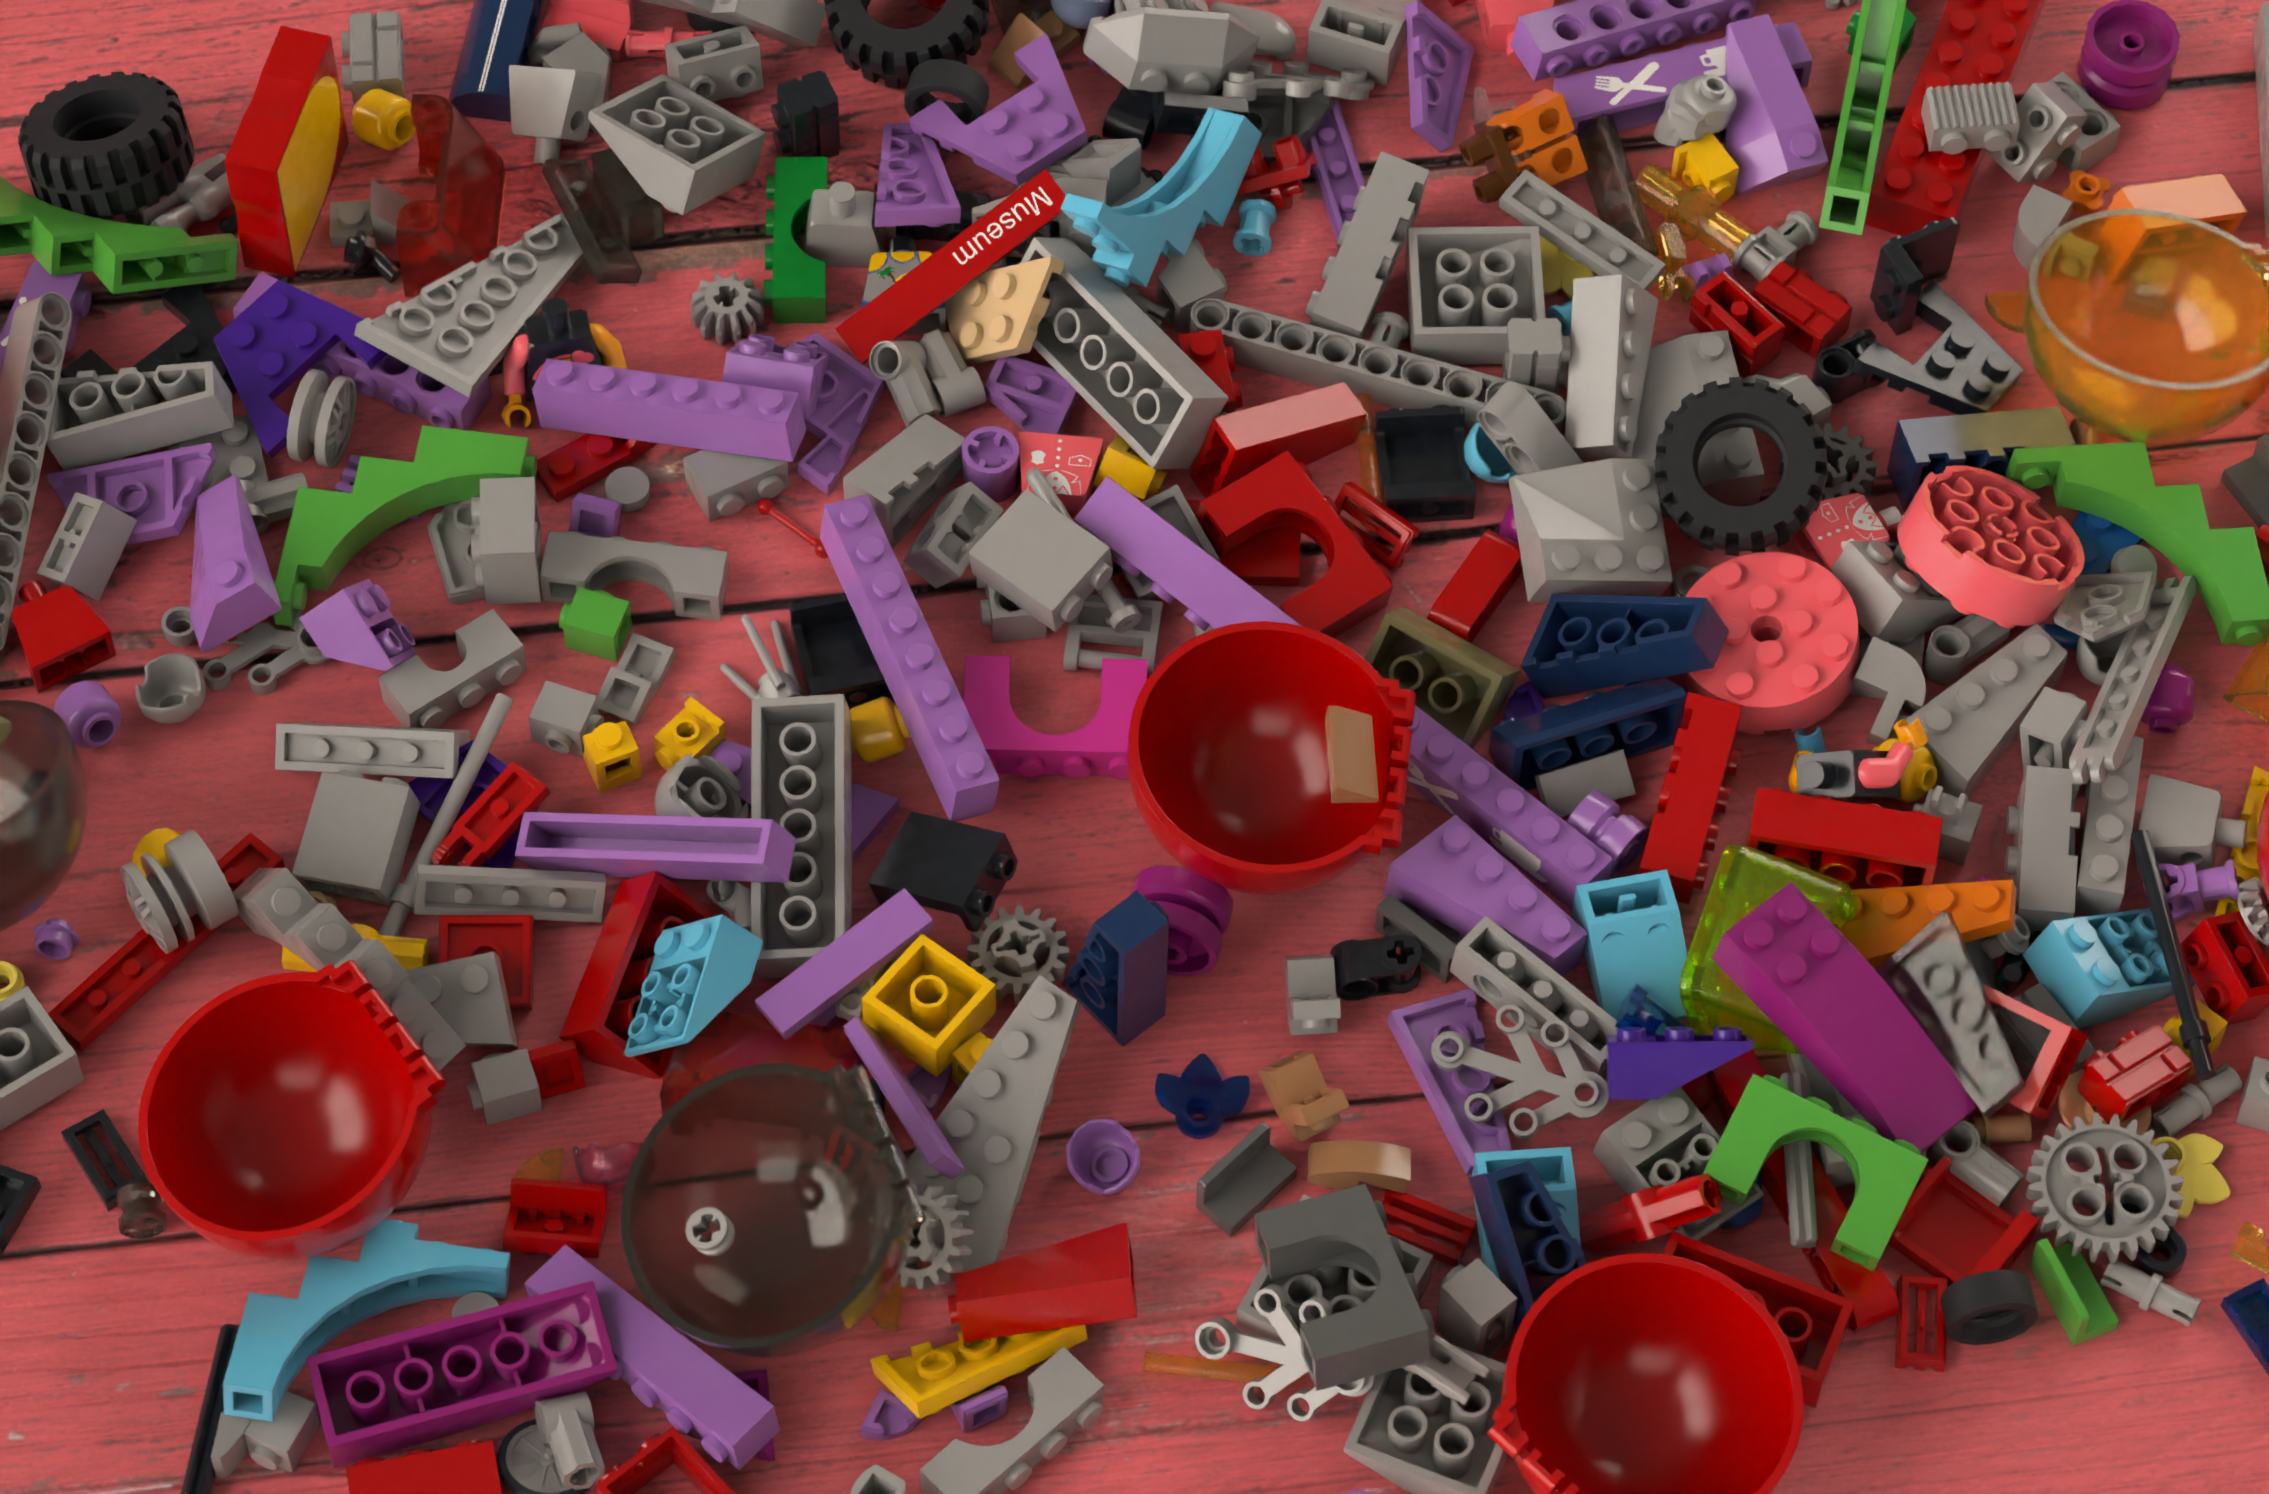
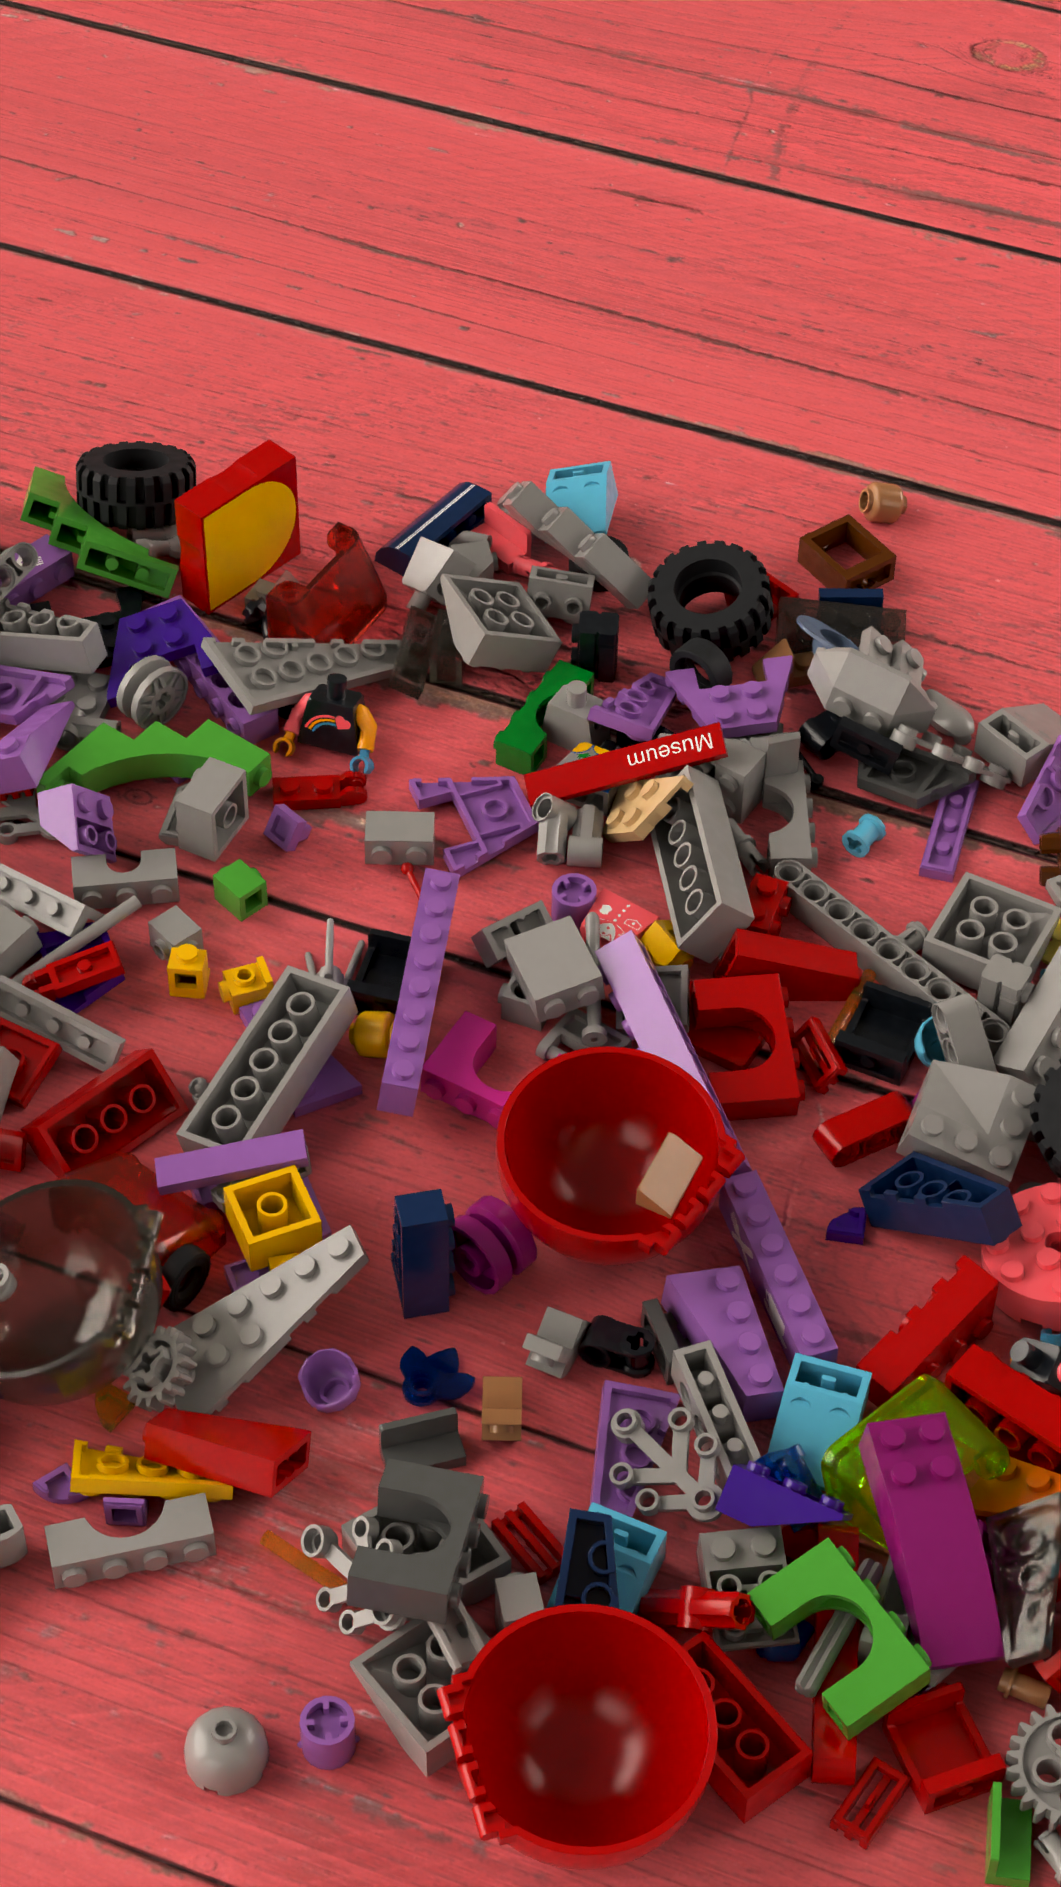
camera: 30 degrees right, 10 degrees down
(374, 54) = (350, 504): light grey brick -> none
(383, 119) = (317, 544): yellow head -> none
(629, 487) = (324, 820): light grey tile -> none
(636, 679) = (247, 935): light grey slope -> none
(666, 844) = (171, 1034): medium lavender brick -> none
(669, 409) = (375, 776): medium lavender brick -> none
(689, 576) = (323, 888): light grey arch -> none
(691, 981) = (136, 1122): medium azure slope -> none
(699, 790) = (217, 1021): light grey cylinder -> none
(727, 308) = (466, 739): light grey gear -> none
(778, 367) = (459, 785): medium lavender slope -> none
(903, 1098) = (208, 1269): medium lavender tile -> none
(908, 475) = (502, 885): light grey wedge -> none
(946, 867) = (355, 1140): black panel -> none
(1019, 952) = (369, 1215): light grey gear -> none
(1031, 395) = (633, 873): medium lavender wing -> none
(1167, 215) = (793, 795): medium azure arch -> none
(1290, 166) = (912, 801): red hips -> none
(1346, 1162) = (514, 1473): medium nougat slope -> none
(1368, 247) = (932, 874): light grey wedge -> none
(1451, 677) = (798, 1173): olive slope -> none
(1567, 786) = (859, 1294): light grey tile -> none
(1615, 834) = (851, 1329): medium lavender wheel -> none
(1631, 718) = (878, 1259): dark blue slope -> none
(1977, 1164) = (988, 1704): light grey piece -> none
(1989, 1307) = (923, 1813): black tyre -> none

